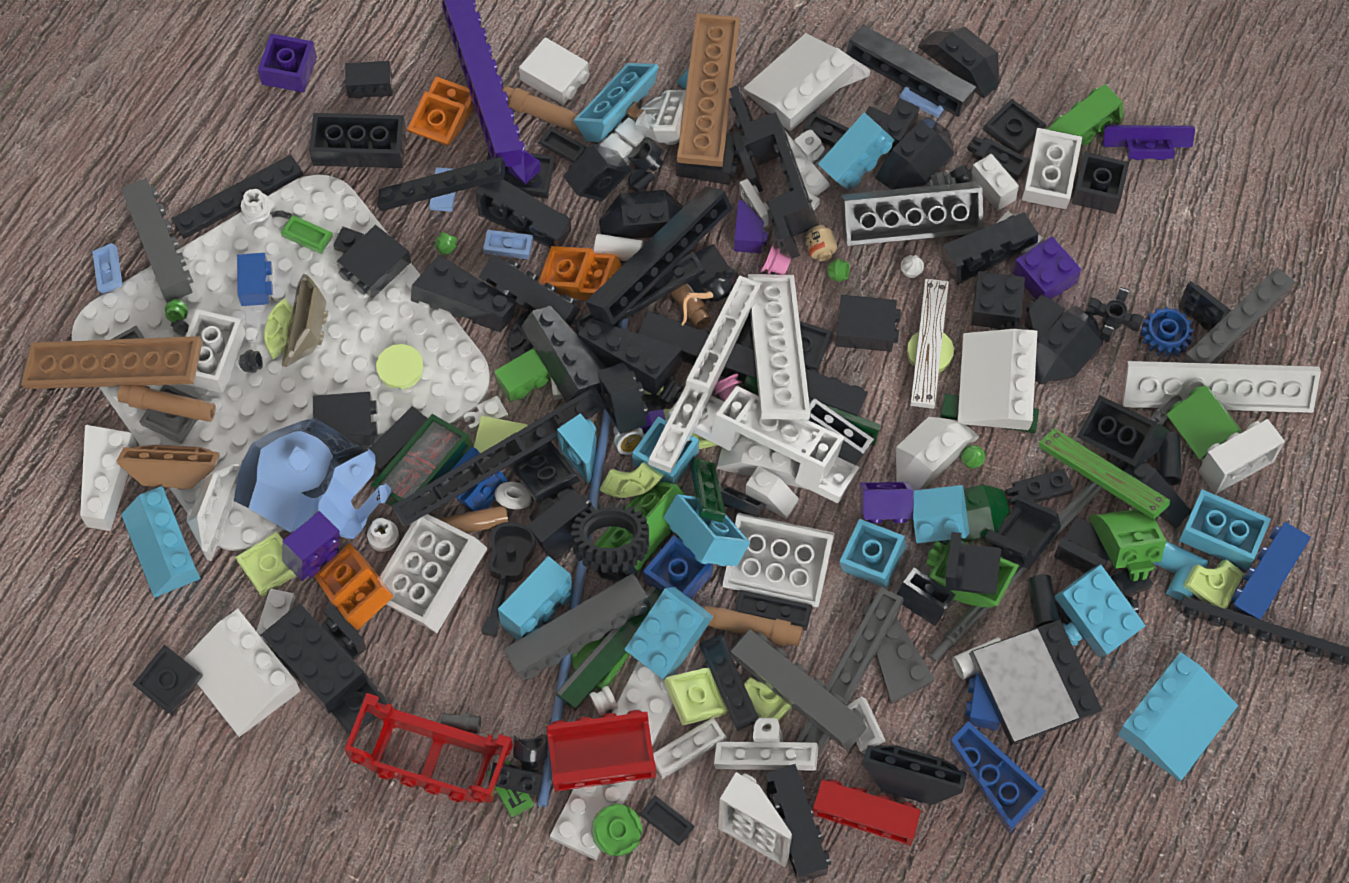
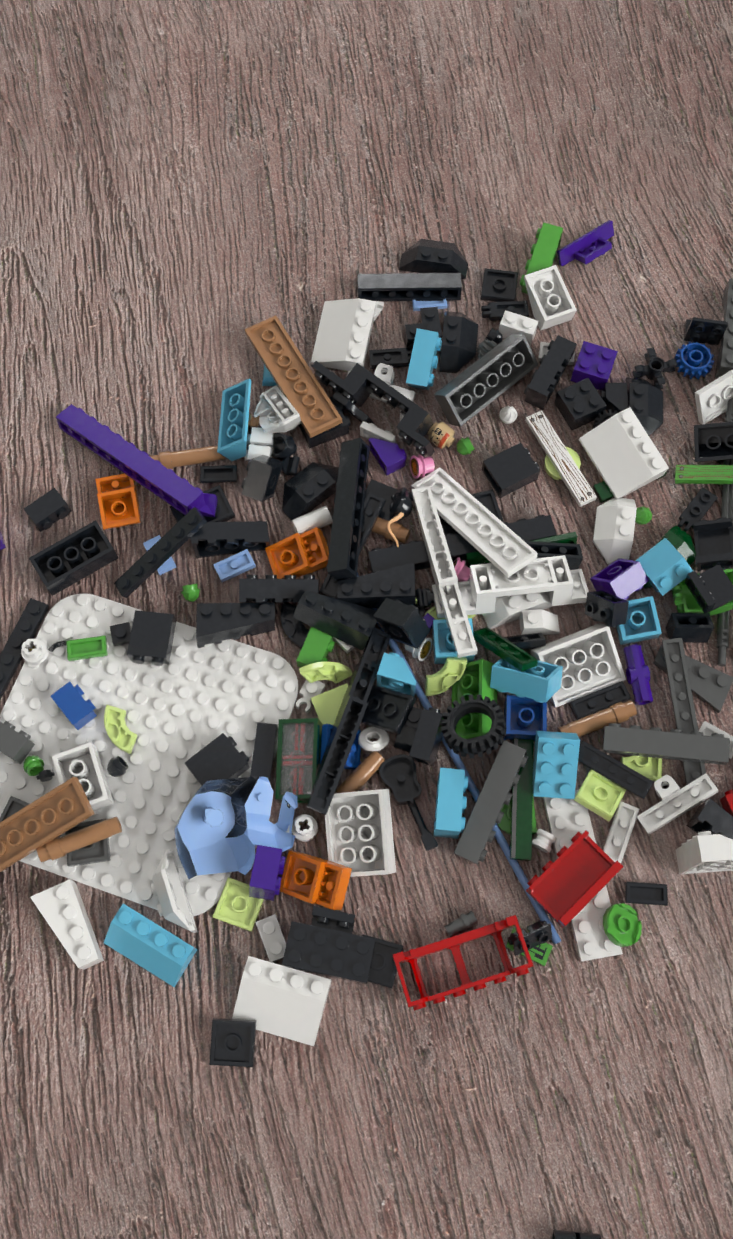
camera: 35 degrees left, 5 degrees up
(168, 465) = (116, 883): medium nougat wedge -> none
(305, 322) = (136, 711): dark tan wedge -> none
(400, 366) = (226, 700): yellowish green tile -> none
(515, 399) = (325, 671): none -> yellowish green tile
(530, 750) = (524, 909): black piece -> none
(554, 71) = (175, 426): white brick -> none
(833, 609) = (638, 674): none -> dark purple piece
(844, 517) = (606, 608): none -> black brick
(1100, 183) = (585, 288): black brick -> none

